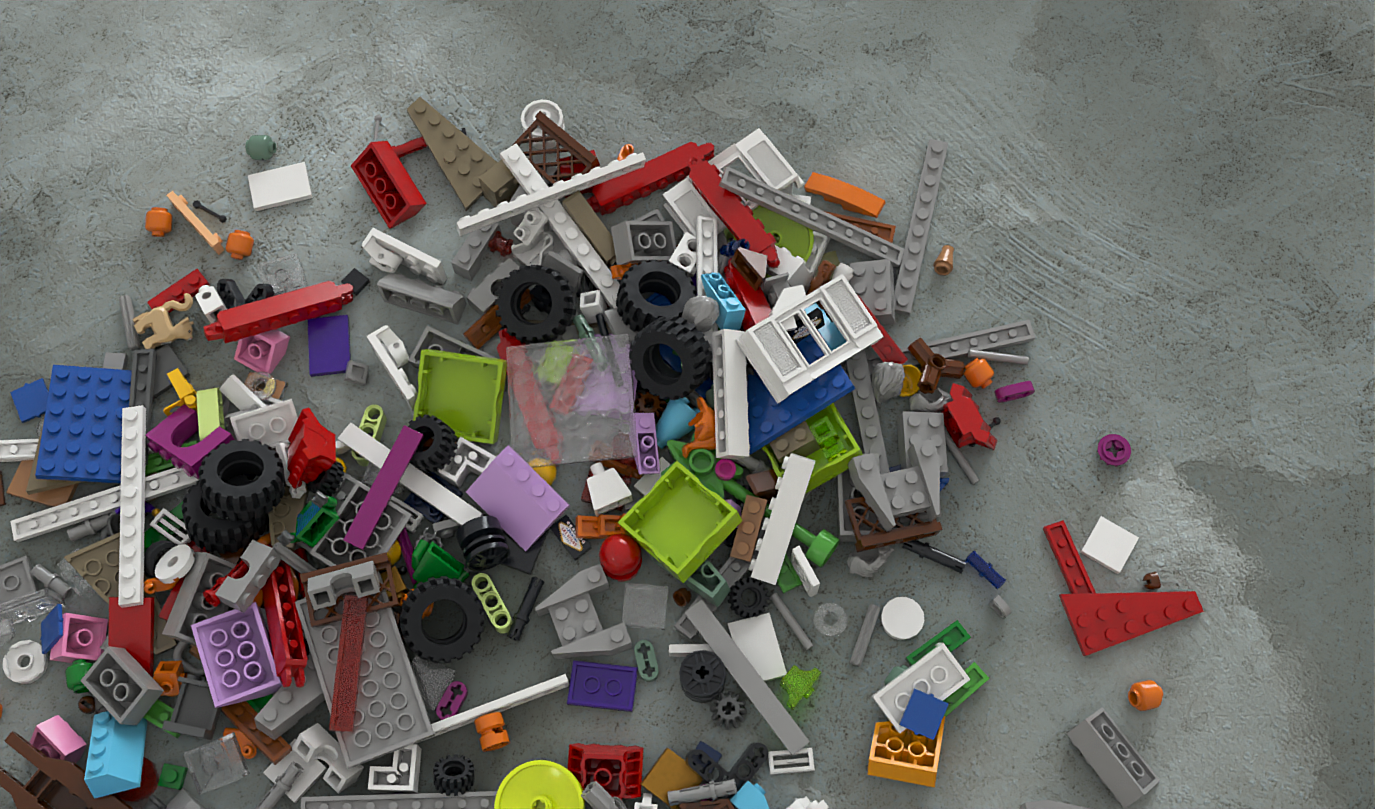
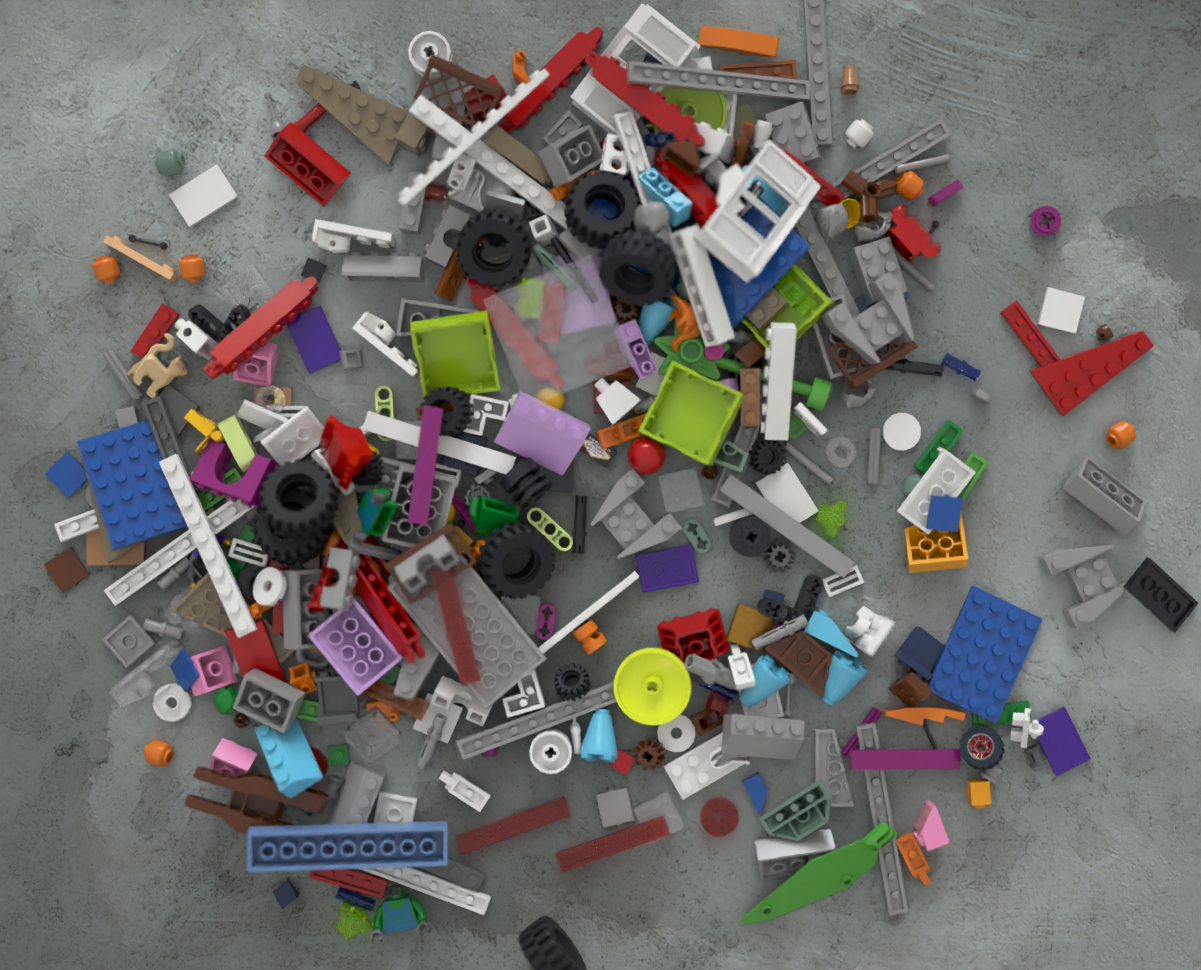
camera: 20 degrees left, 20 degrees up
(940, 310) = (859, 133): none -> white head

